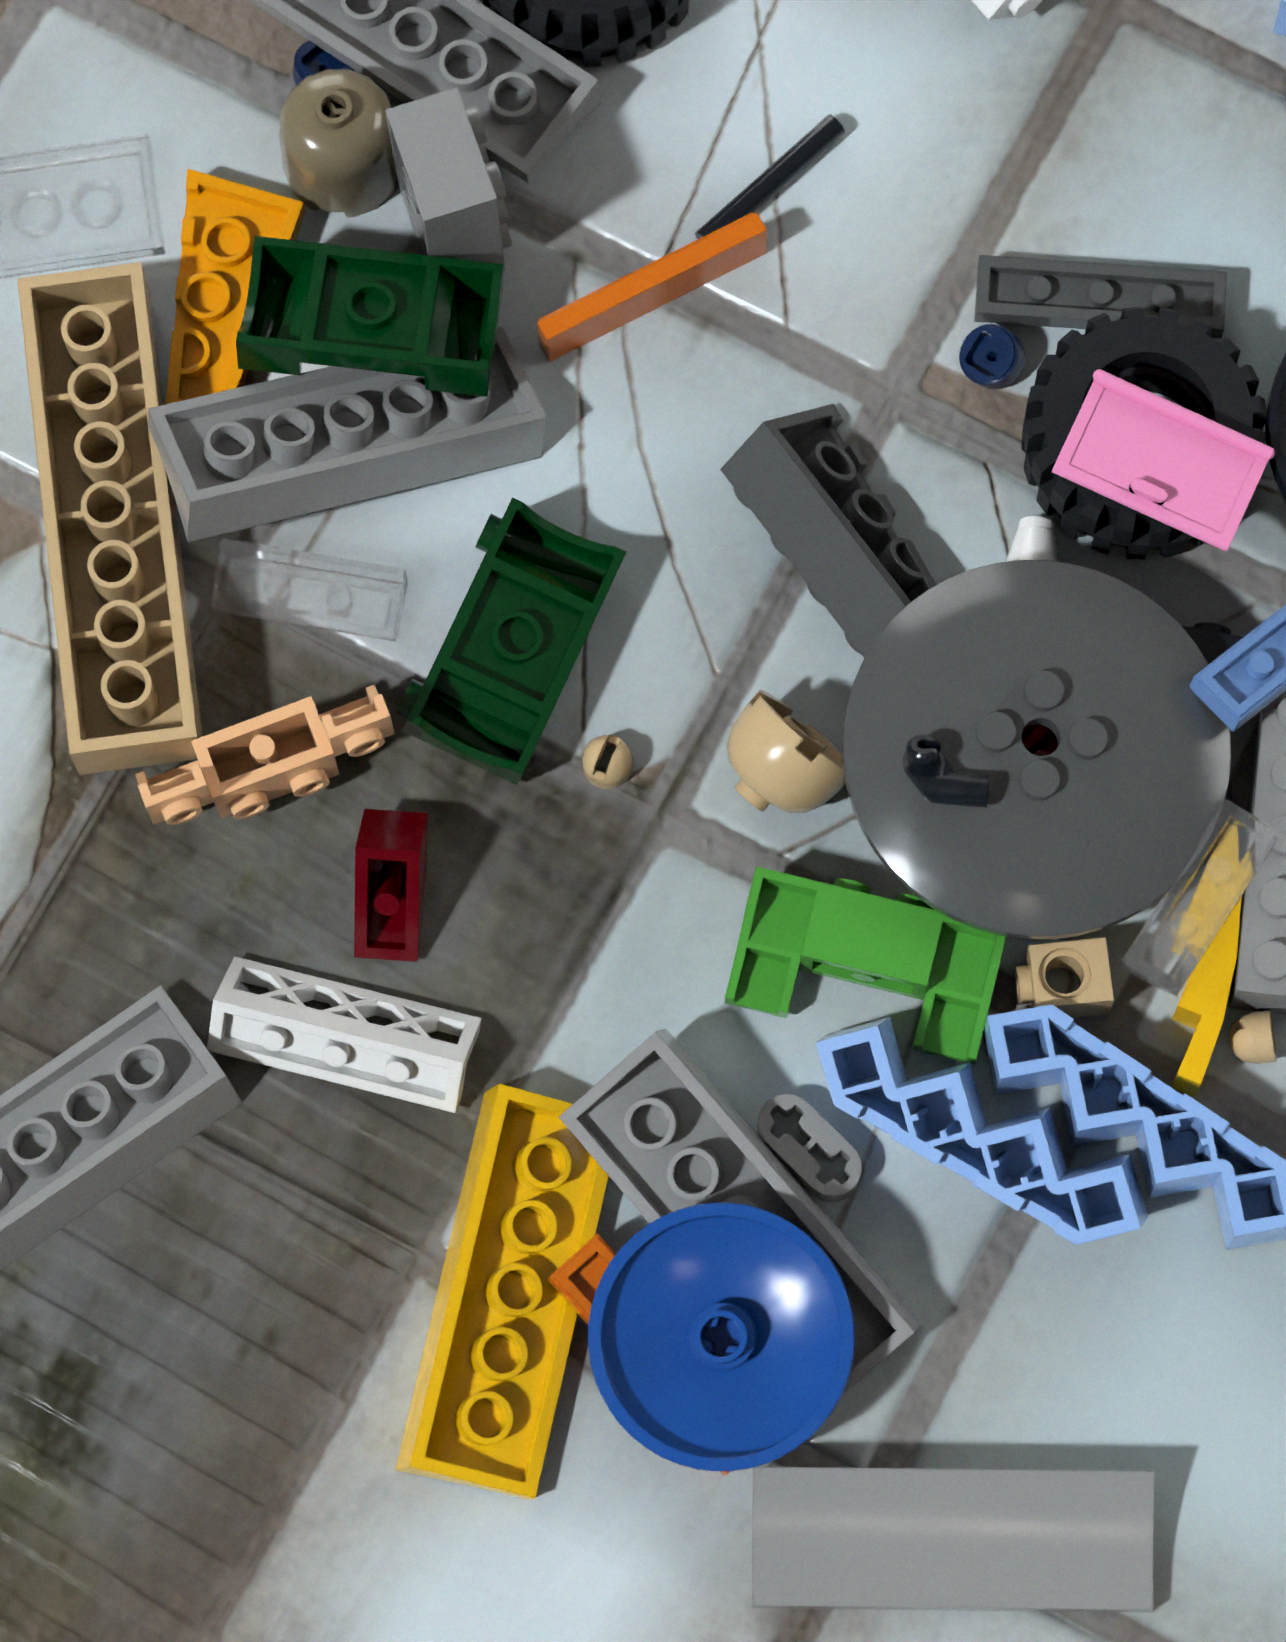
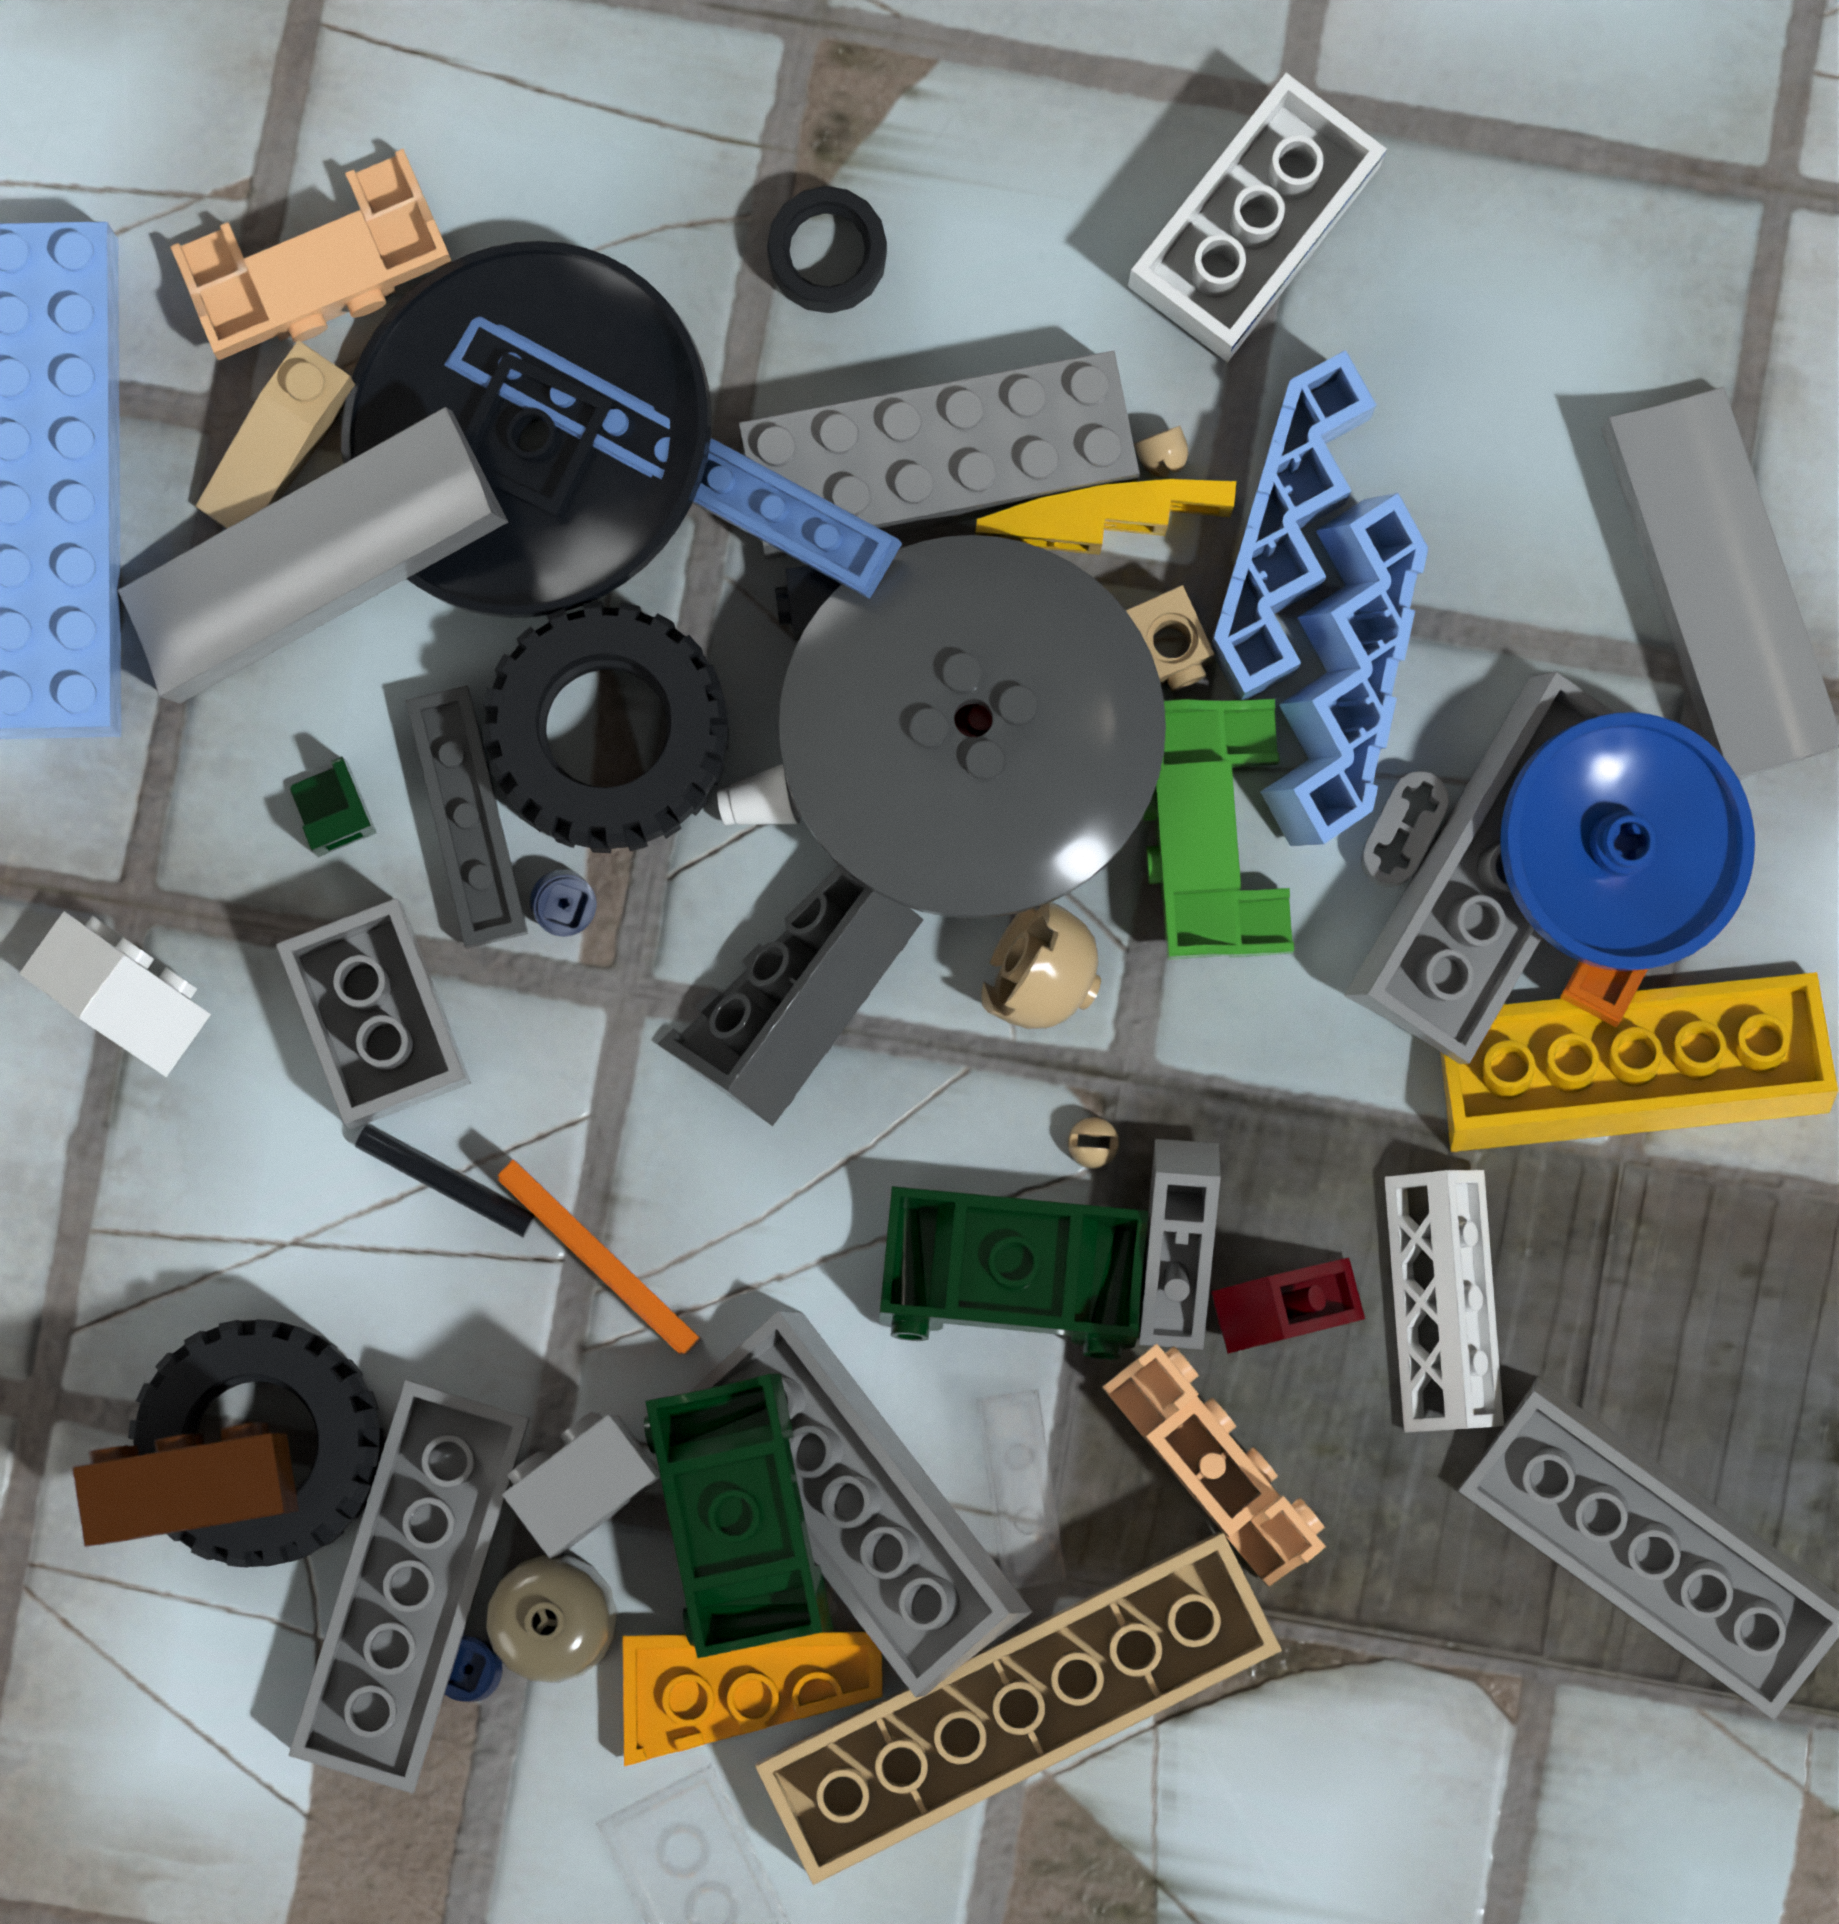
camera: 115 degrees left, 10 degrees up
(488, 803) = (1179, 1243): none -> light grey slope
(938, 780) = (1052, 798): black arm -> none
(942, 154) = (373, 1013): none -> light grey brick
(1144, 186) = (332, 809): none -> dark green panel
(1165, 456) = (649, 668): bright pink door -> none
(1200, 899) = (1084, 533): clear slope -> none

